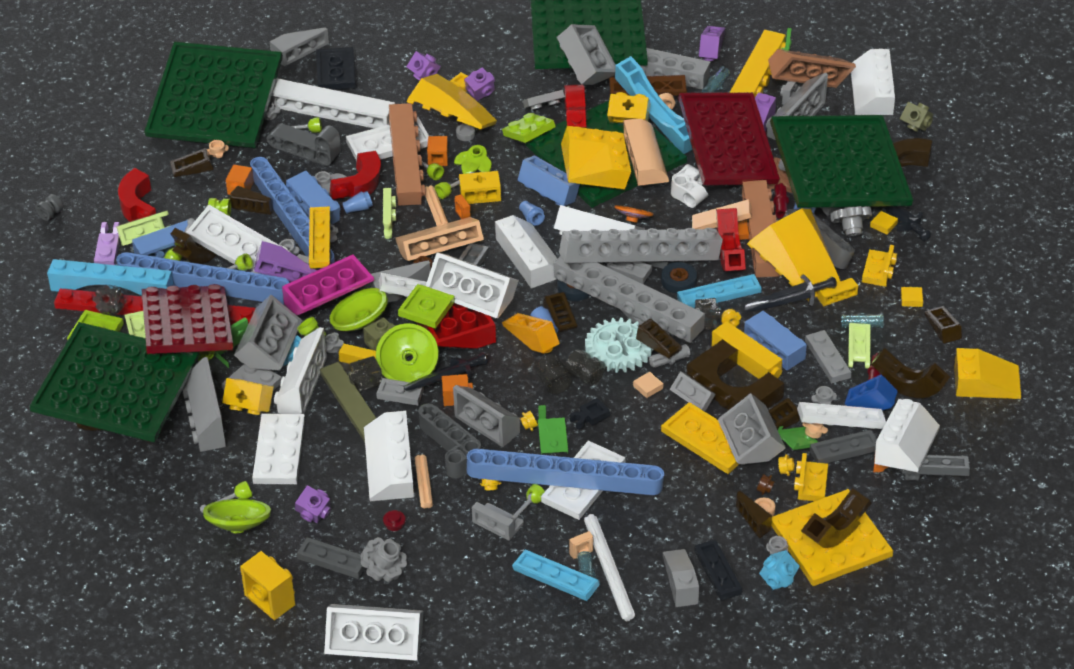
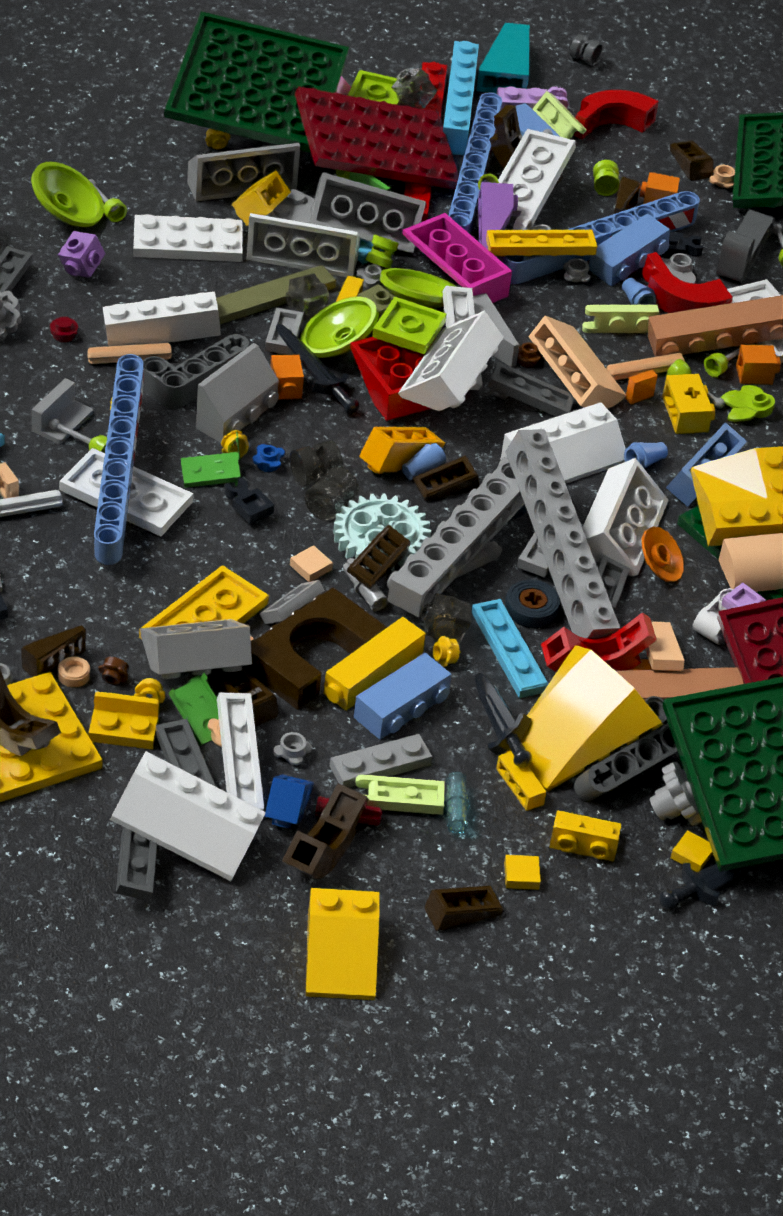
camera: 80 degrees right, 0 degrees up
(44, 247) = (507, 60): none -> teal slope
(538, 400) = (268, 457): none -> blue plate
(686, 172) = (741, 596): none -> lavender tile

